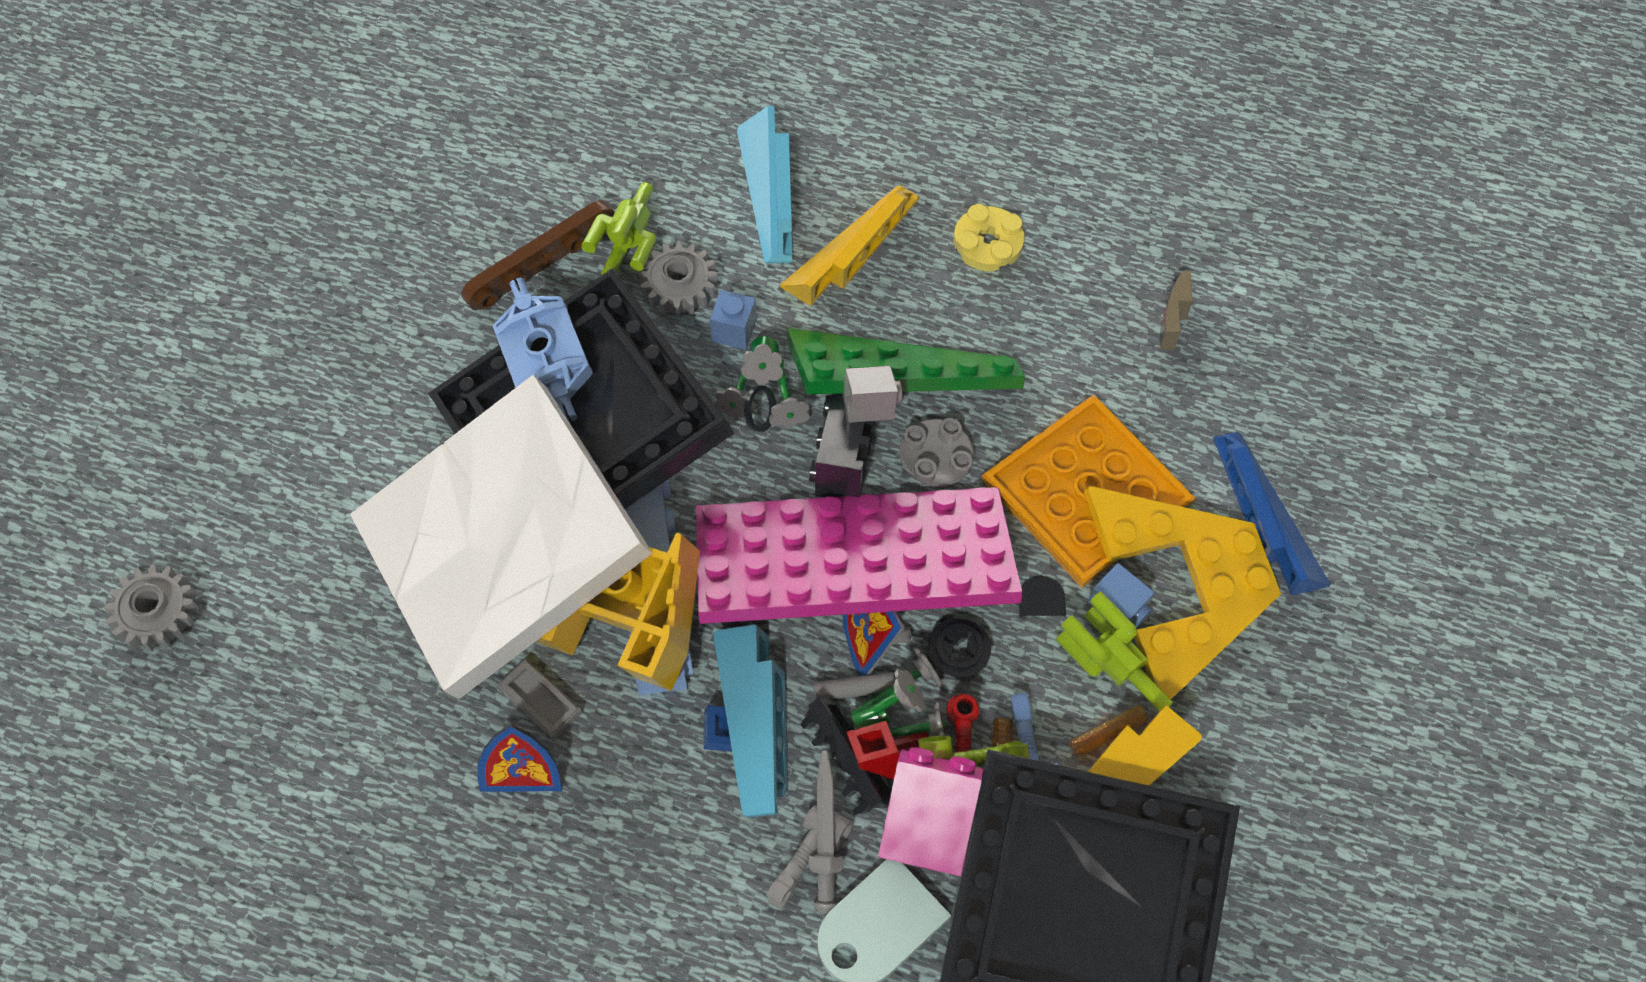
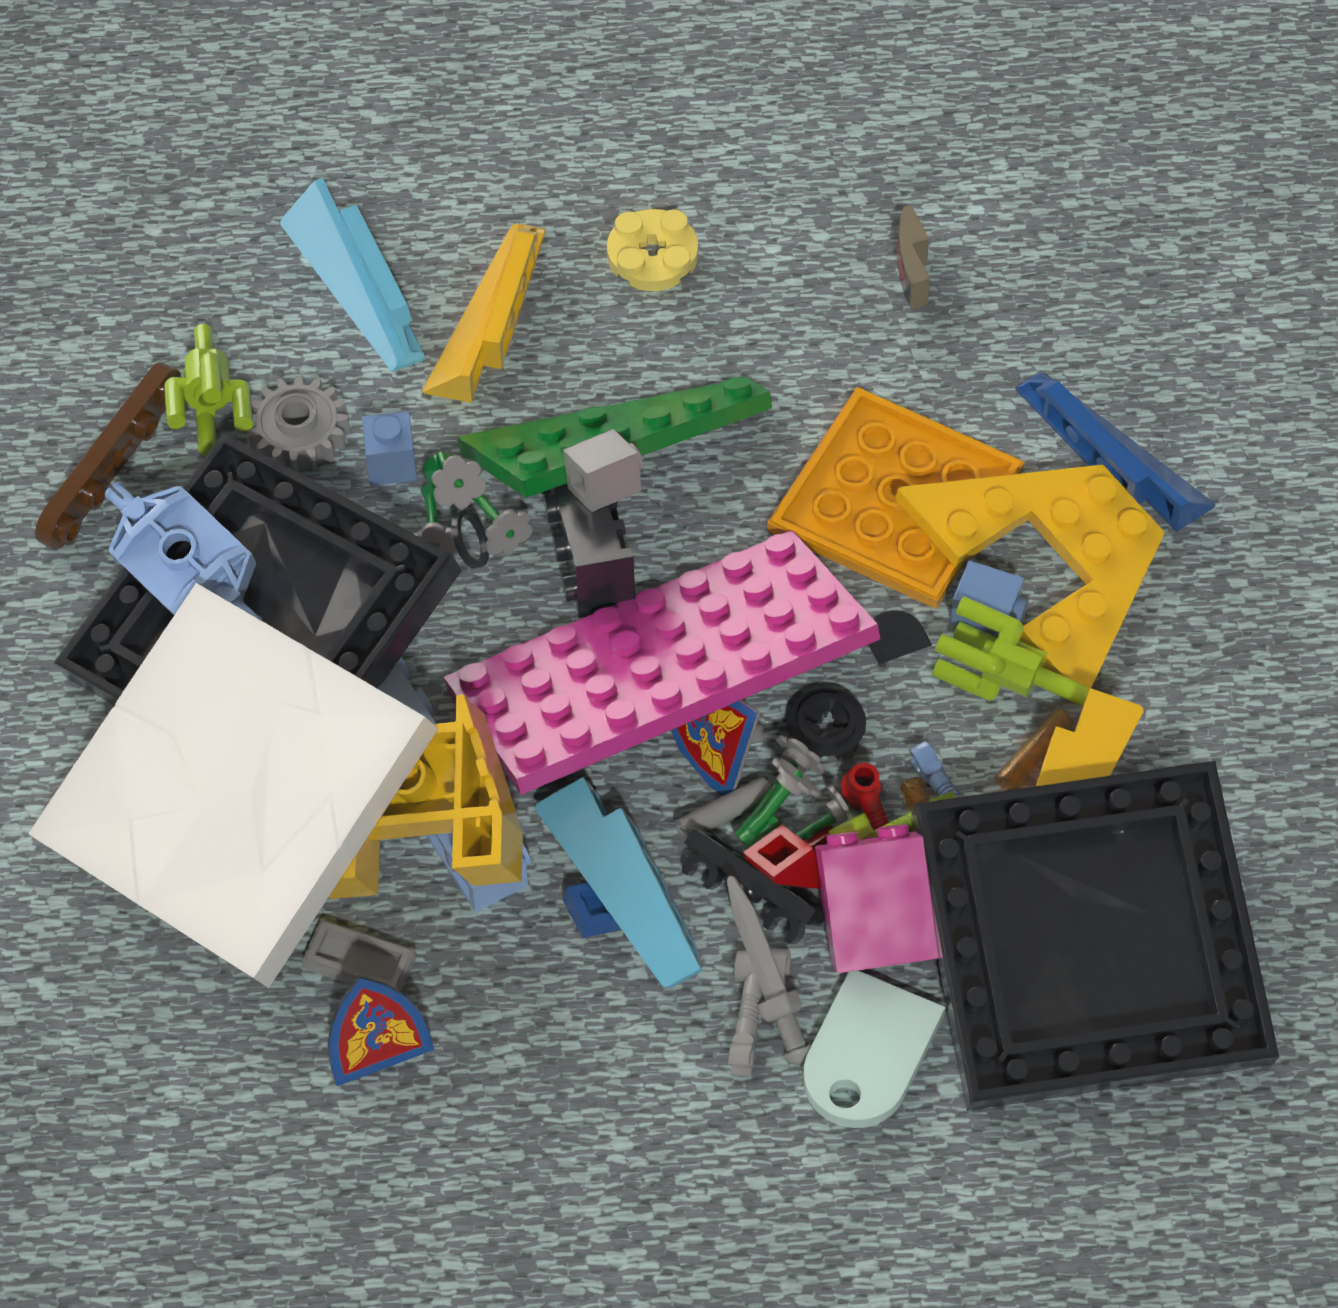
camera: 20 degrees left, 5 degrees down
(937, 452) = (702, 515): light grey dish -> none

